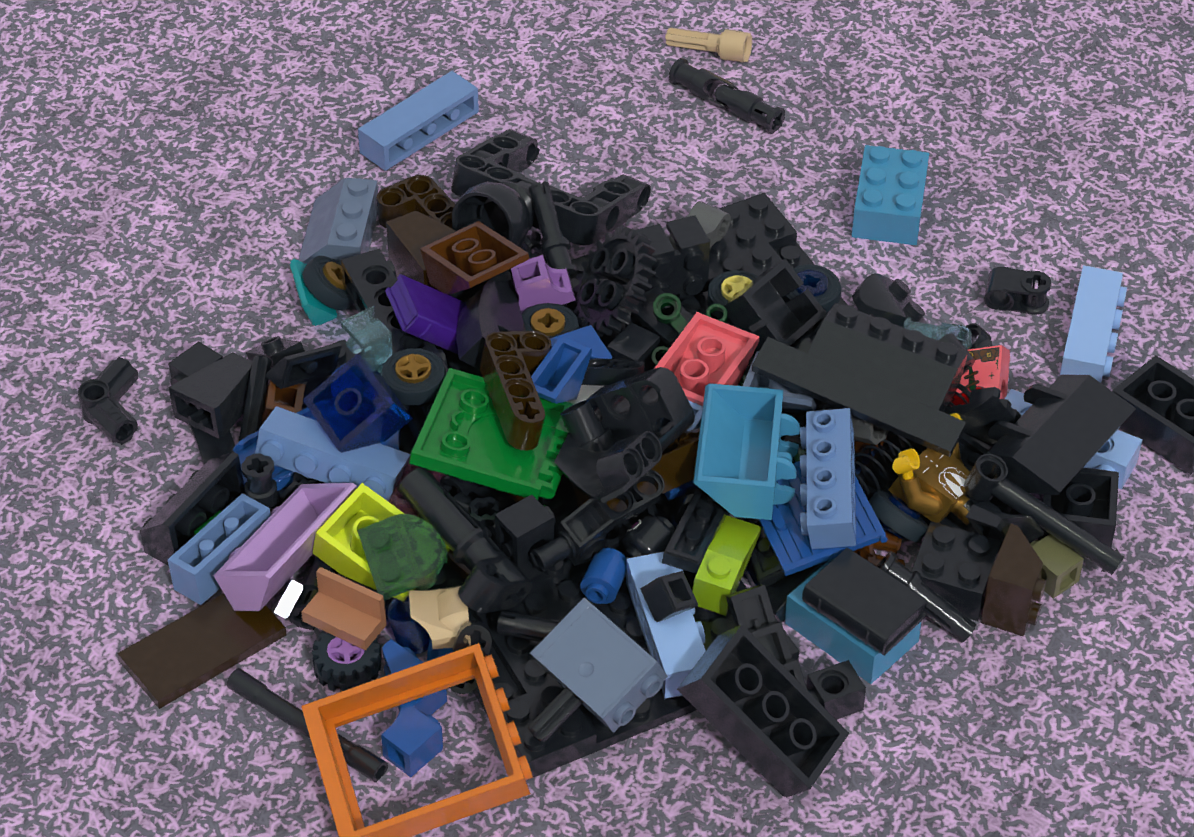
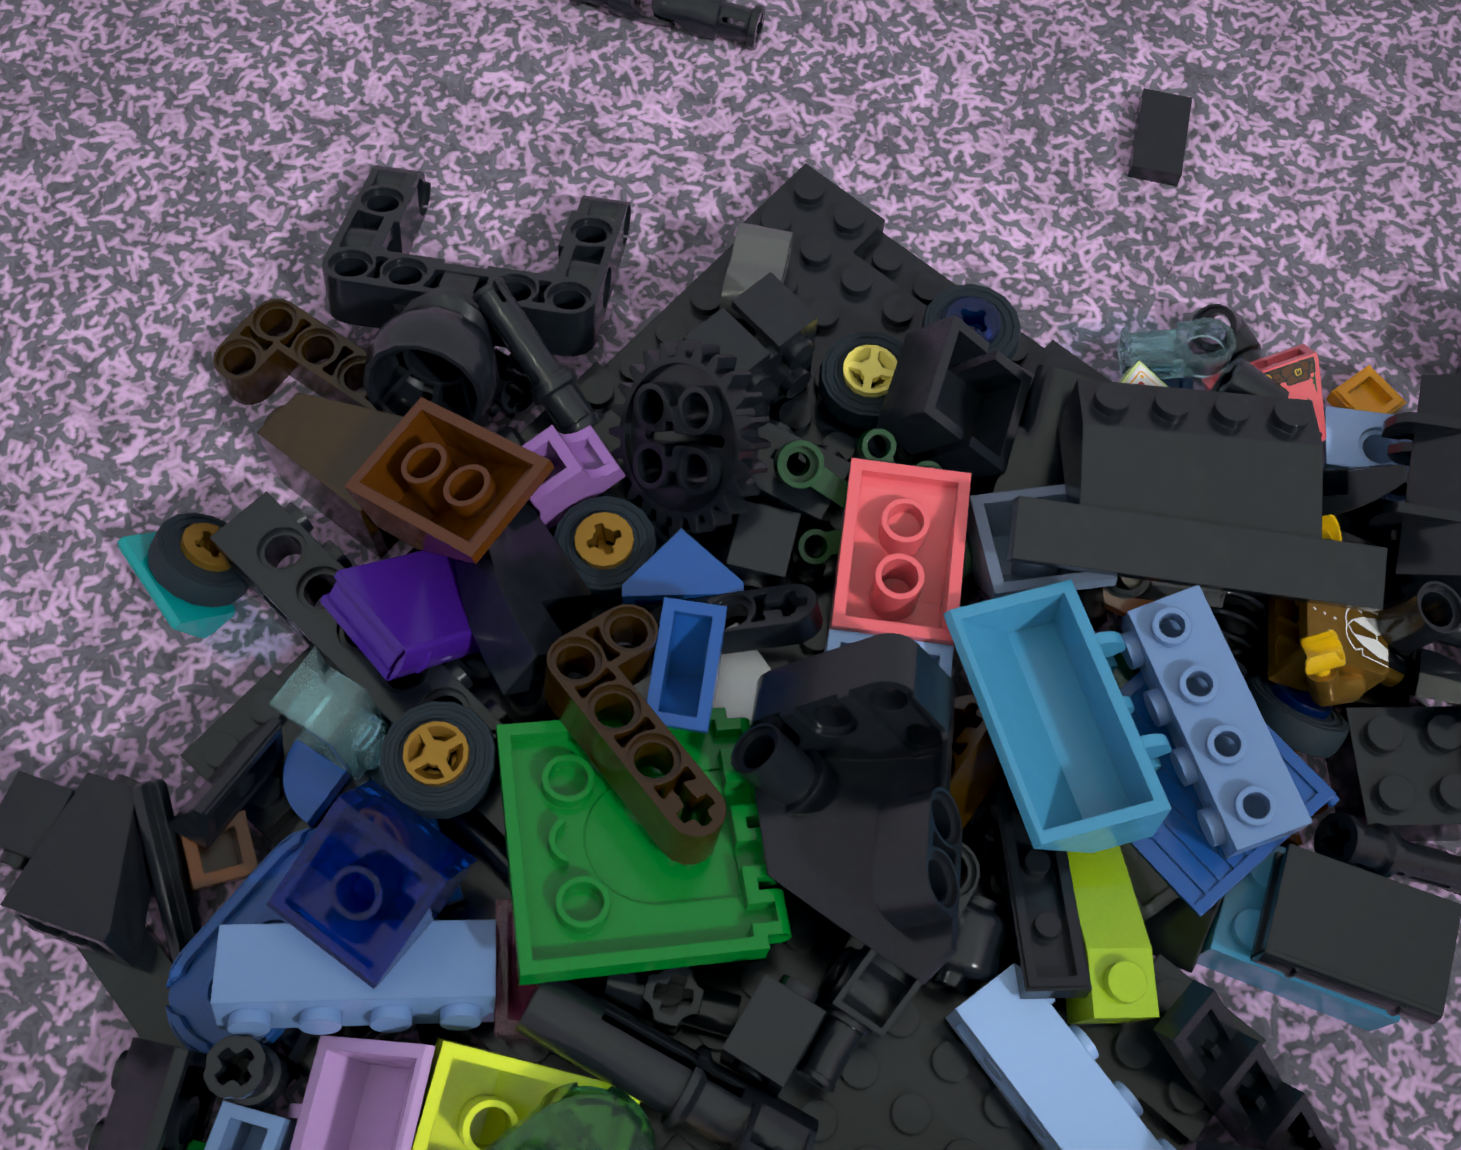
camera: 25 degrees left, 20 degrees up
(276, 349) = (163, 738): black plate -> none
(342, 221) = (174, 436): sand blue slope -> none
(418, 120) = (220, 193): medium blue brick -> none
(604, 576) = (922, 1044): blue brick -> none
(669, 596) = (1073, 1080): black slope -> none
(838, 689) = (1369, 1080): black brick -> none
(887, 300) = (1071, 308): black slope -> none
(890, 195) = (982, 108): dark azure brick -> none
(1002, 241) = (1160, 137): none -> black tile
(1014, 290) = (1225, 221): black piece -> none
(1092, 323) = (1360, 249): light blue brick -> none

